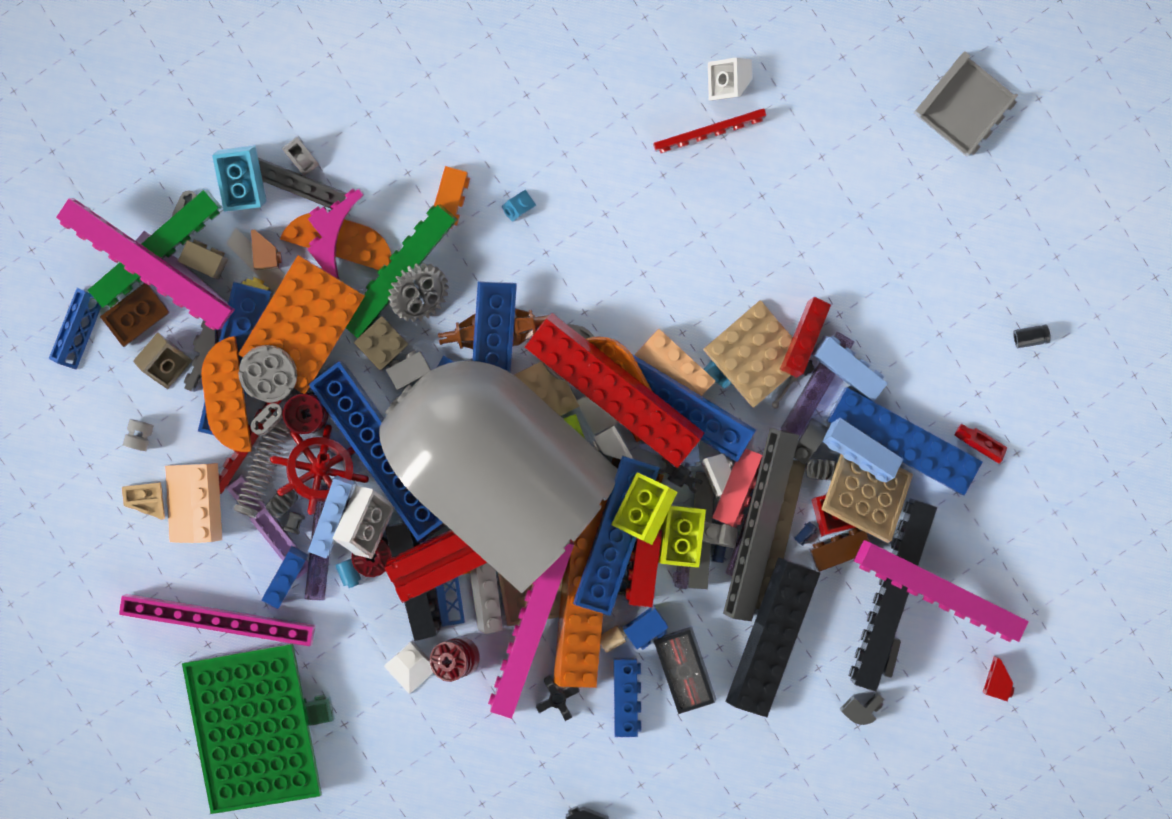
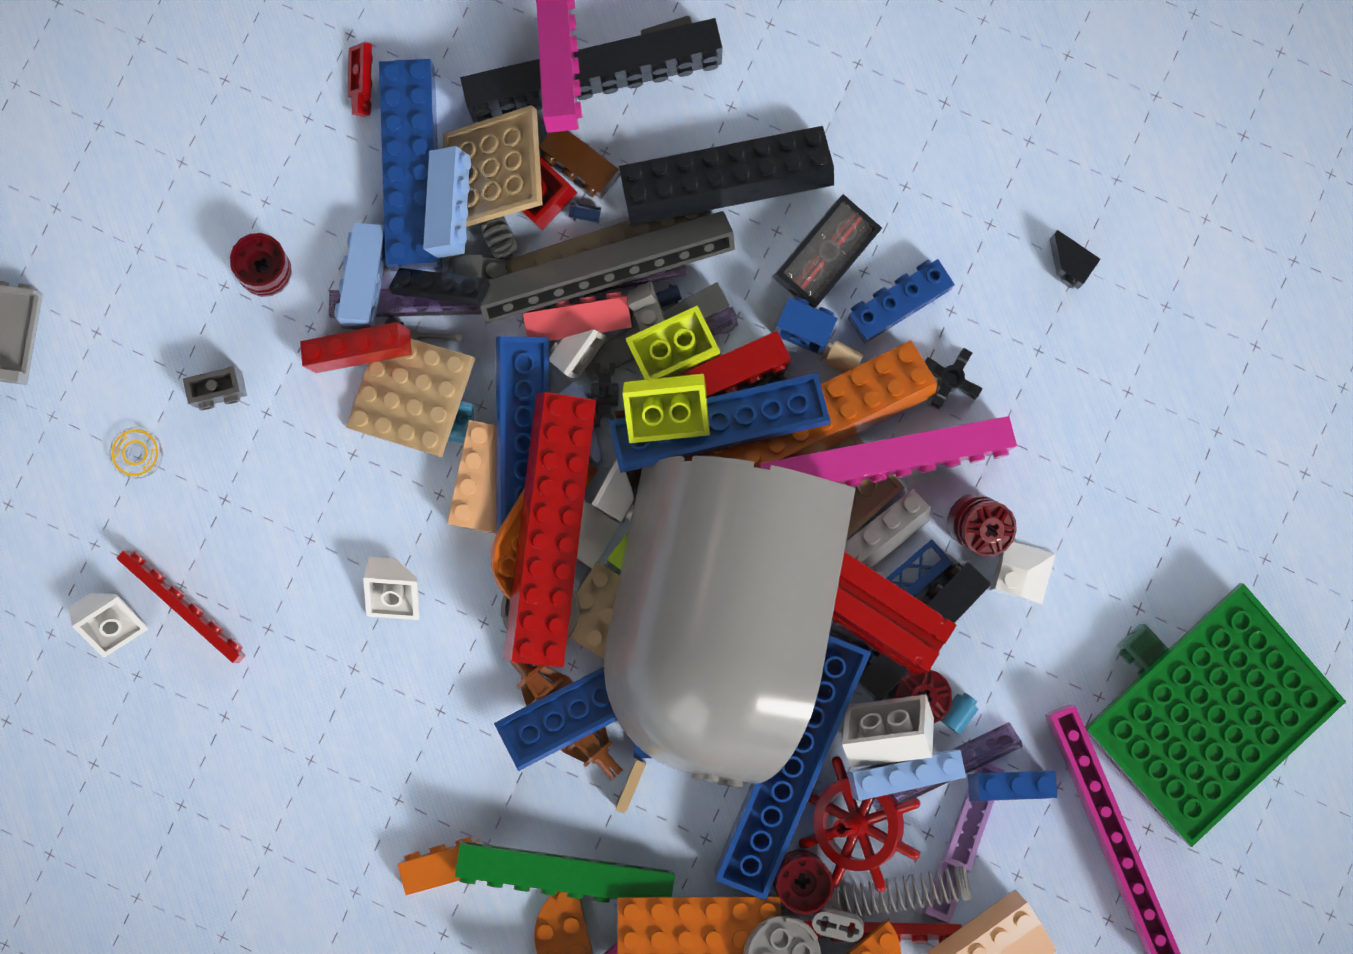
camera: 110 degrees left, 5 degrees down
(280, 505) = (929, 844): dark grey gear -> none
(294, 522) = (940, 814): dark grey bush -> none
(381, 343) = (664, 841): dark tan brick -> none
(408, 370) = (675, 789): light grey brick -> none
(427, 343) = (631, 785): none -> tan tile
(431, 288) = (563, 820): light grey gear -> none
(518, 205) = (403, 778): dark azure bracket -> none
(639, 267) = (390, 590): none -> white slope
(811, 413) = (439, 286): none -> black plate
(835, 232) = (215, 387): none -> flat silver brick
(837, 157) = (122, 446): none -> clear tile
(862, 714) = (751, 27): dark grey brick -> none
(907, 308) = (257, 251): none -> dark red wheel
(1031, 336) = (204, 96): black piece -> none

